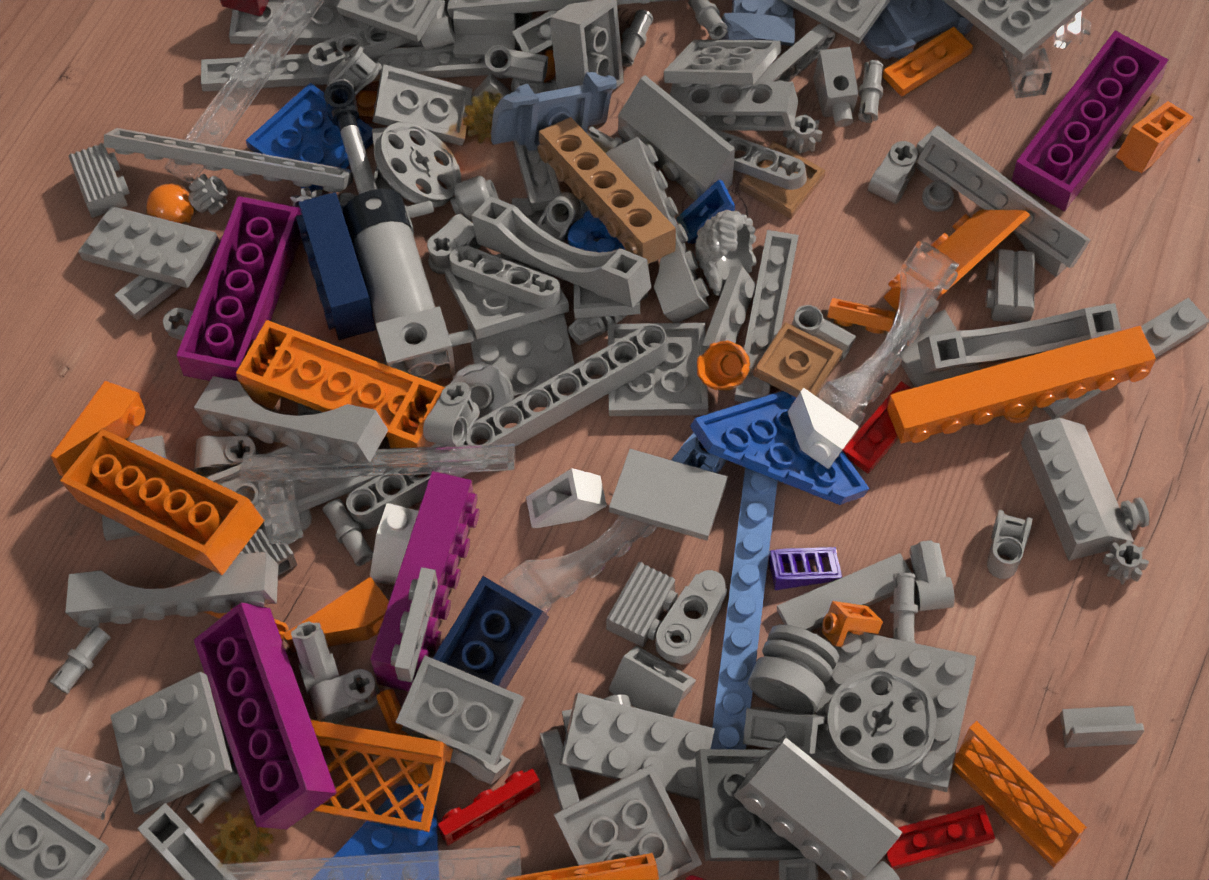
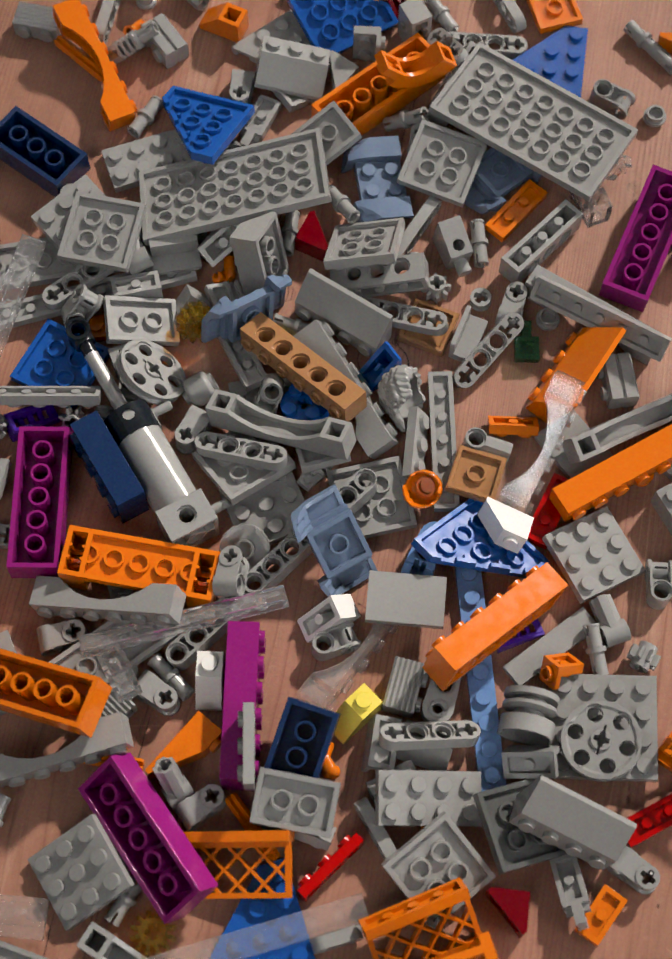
camera: 15 degrees left, 5 degrees up
(256, 189) = (27, 413): none -> dark purple slope
(323, 547) = (155, 692): none -> light grey piece
(430, 62) = (138, 285): none -> light grey panel
(519, 65) = (210, 274): light grey piece -> none
(519, 683) = (329, 769): none -> orange arm
(568, 528) = (339, 638): none -> light grey piece
(571, 623) = (356, 712): none -> light yellow slope
(593, 403) = (334, 541): none -> sand blue piece
(594, 664) = (374, 755): none -> light grey panel
(657, 46) = (311, 239): none -> dark red slope
(706, 676) = (461, 735): none -> light grey beam
(773, 546) = (494, 625): none -> orange brick
(828, 198) = (467, 335): none -> light grey panel
(848, 215) = (490, 352): none -> light grey beam
(857, 166) = (483, 305): none -> light grey bush
(902, 223) = (525, 346): none -> clear green plate
(929, 491) = (593, 554): none -> light grey plate
(950, 100) = (540, 242): none -> light grey brick
(965, 630) = (643, 656): none -> light grey gear

